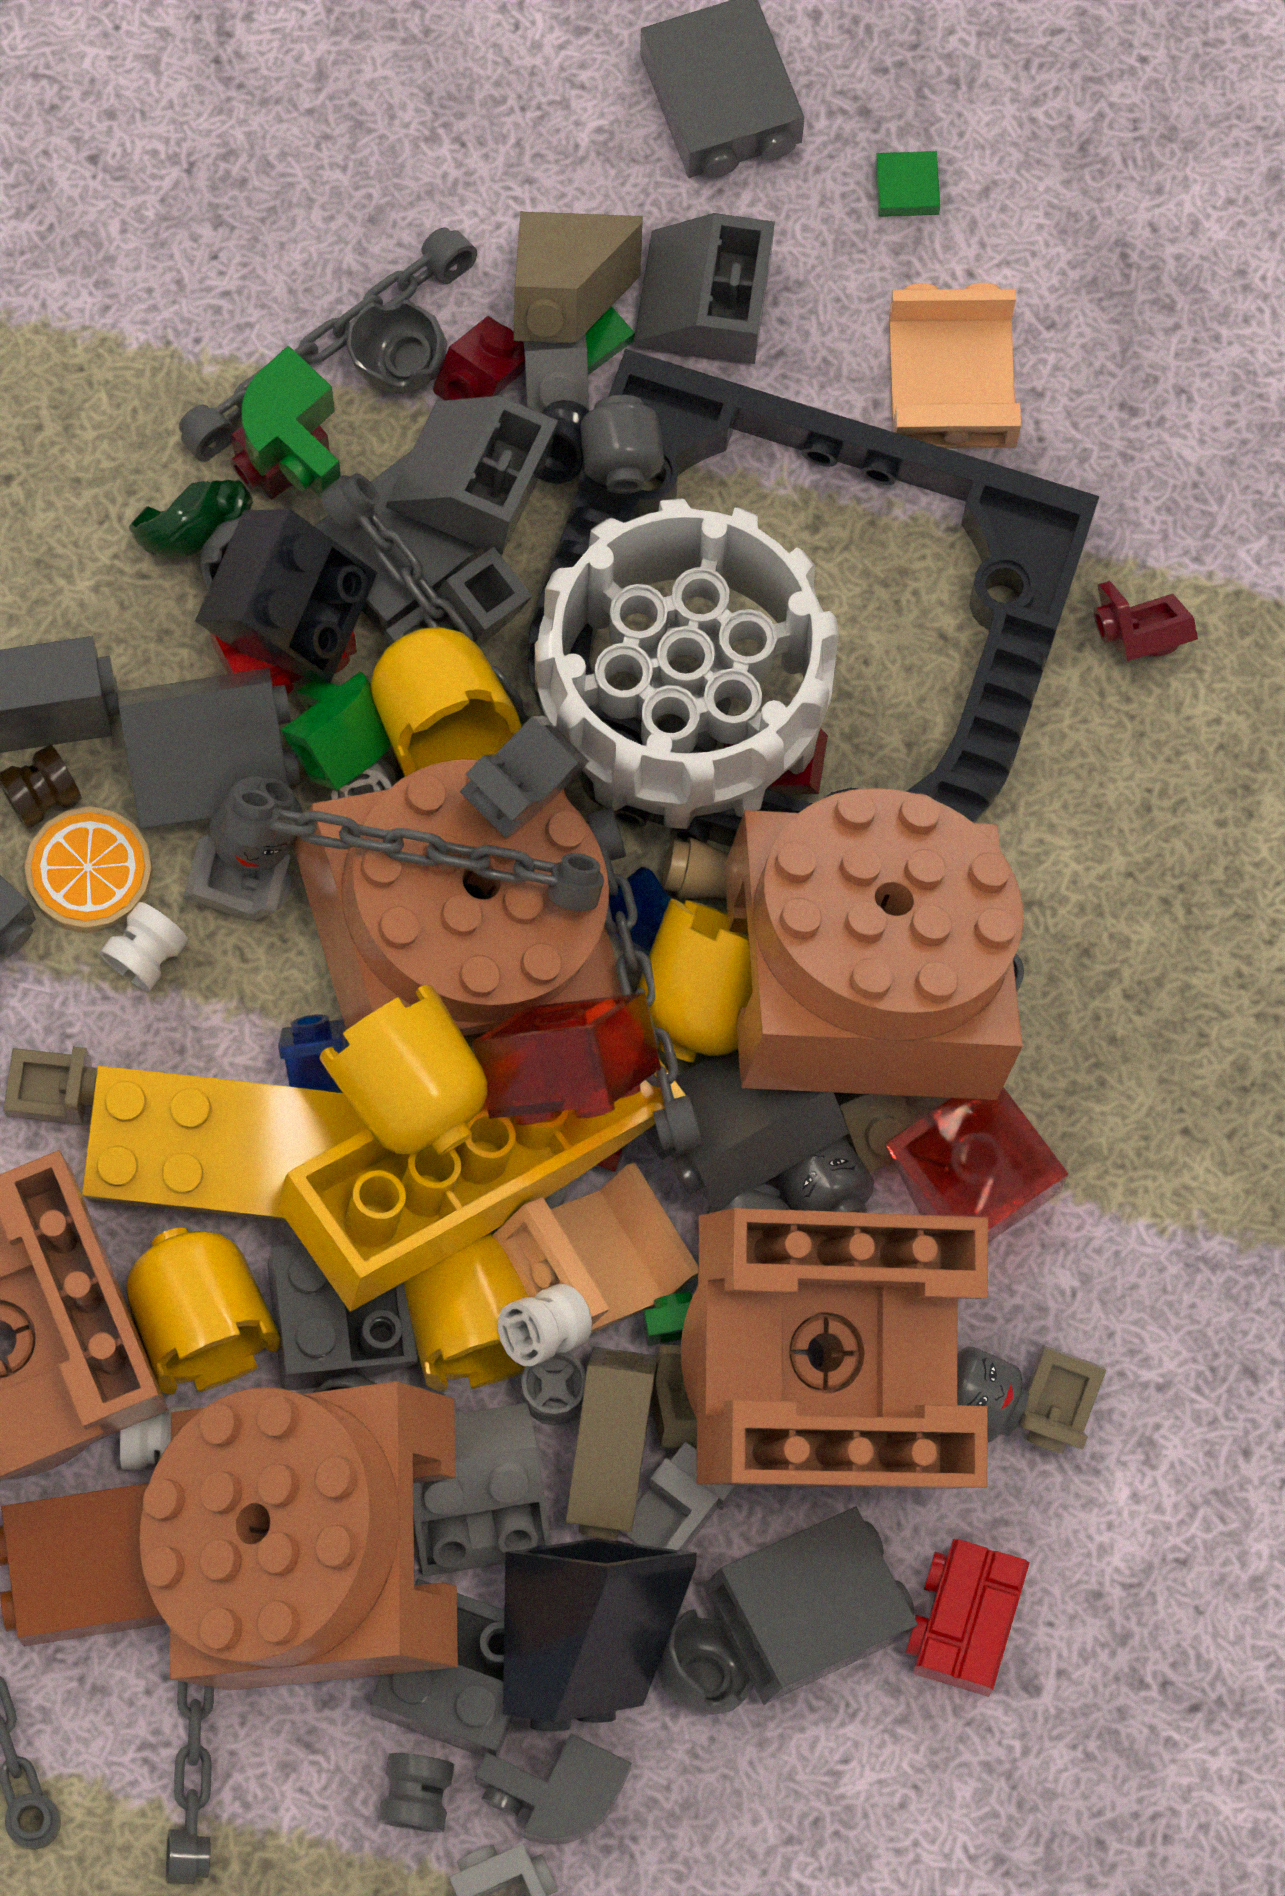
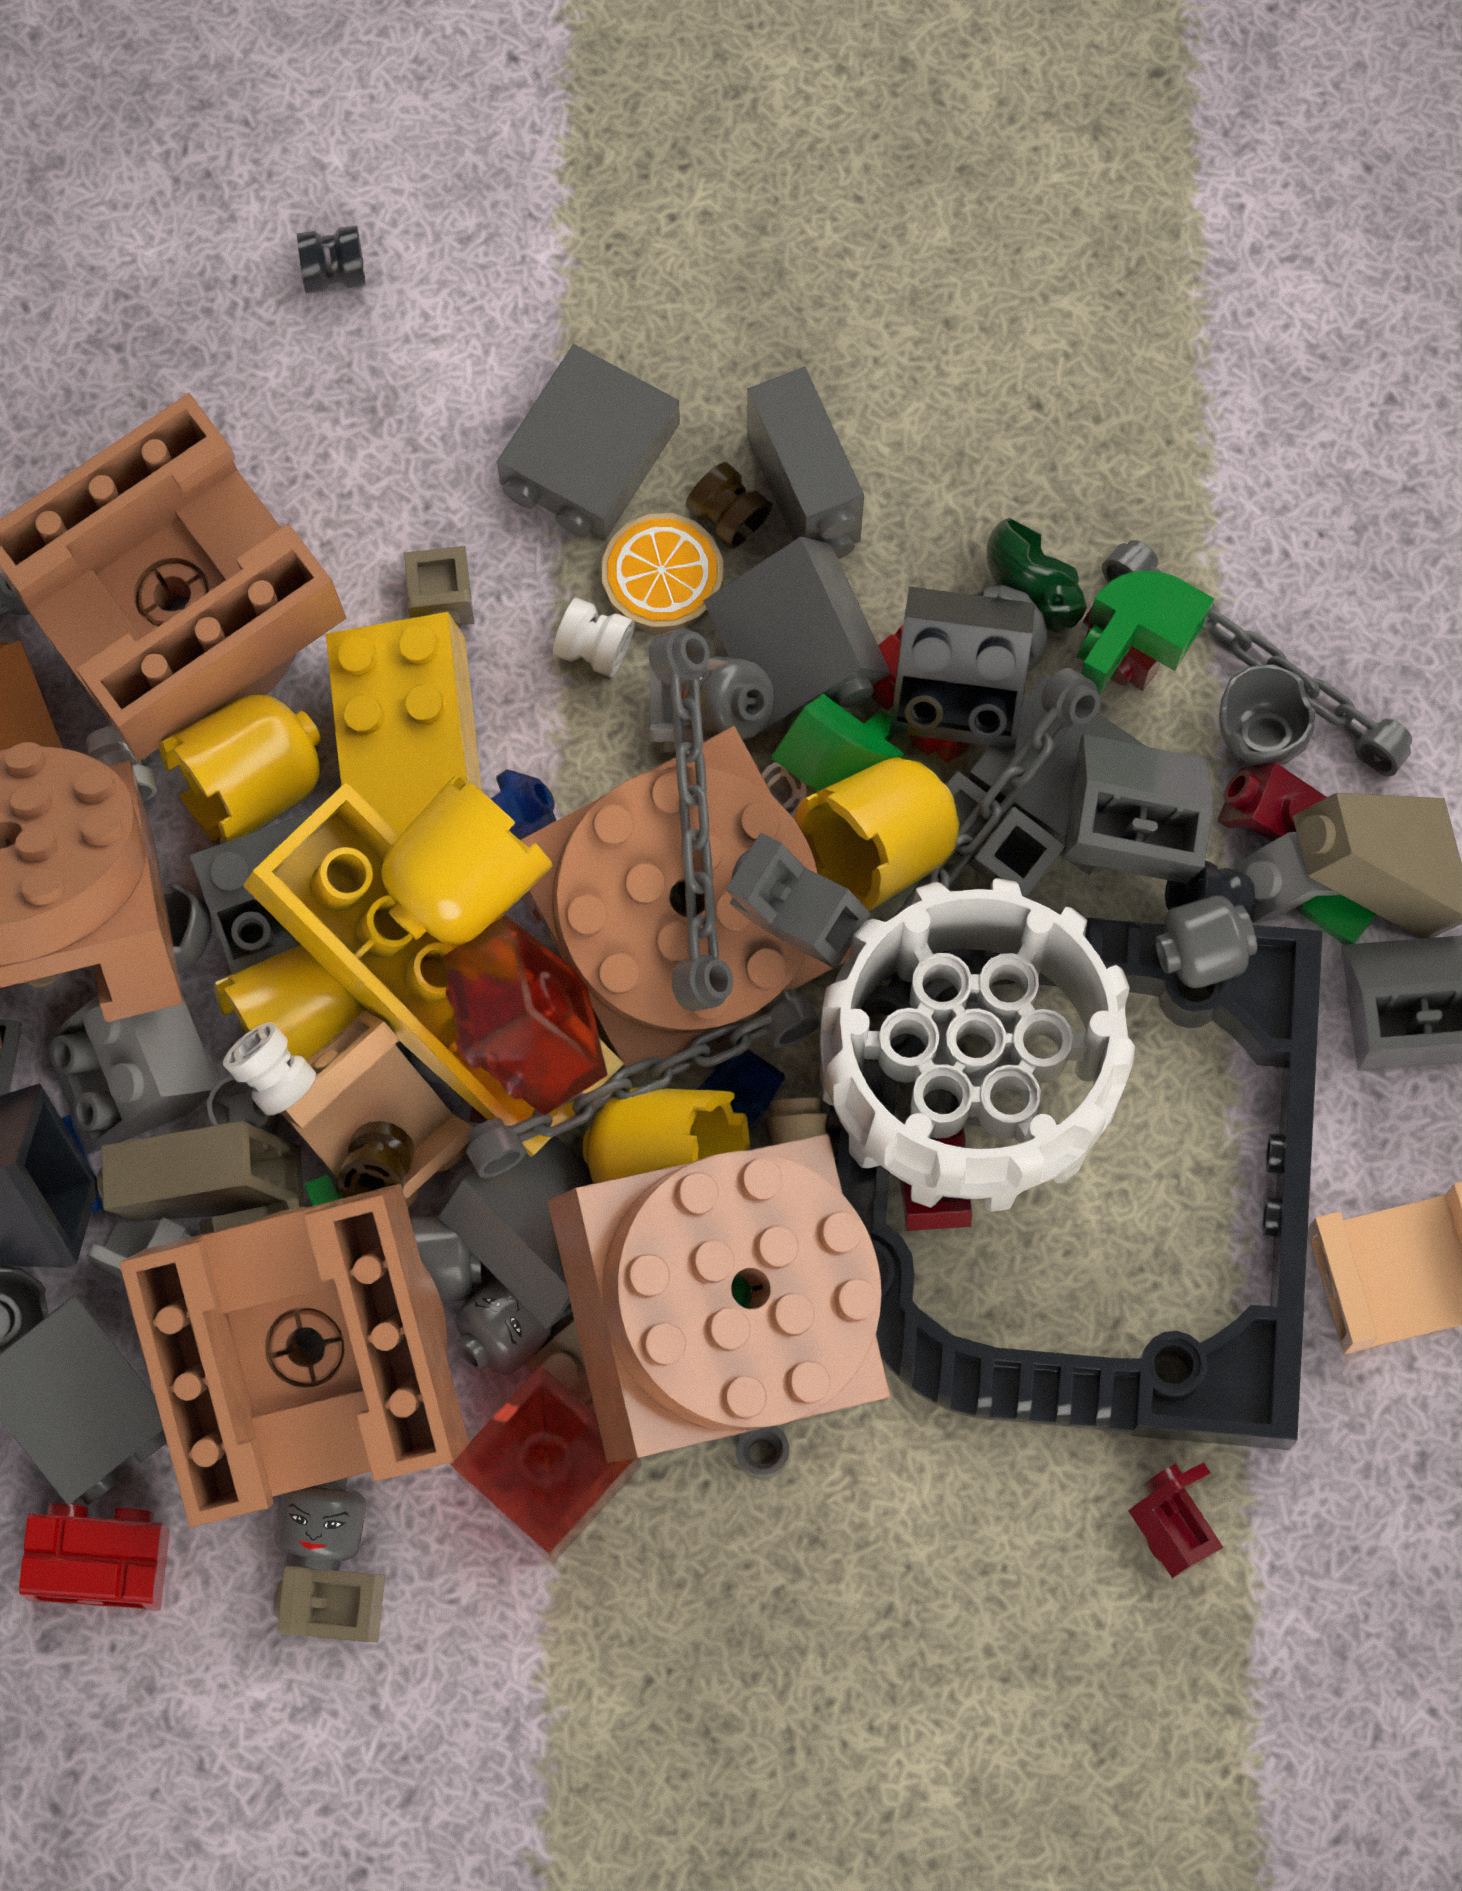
camera: 80 degrees right, 0 degrees up
(650, 1259) = (376, 1159): none -> dark brown wheel

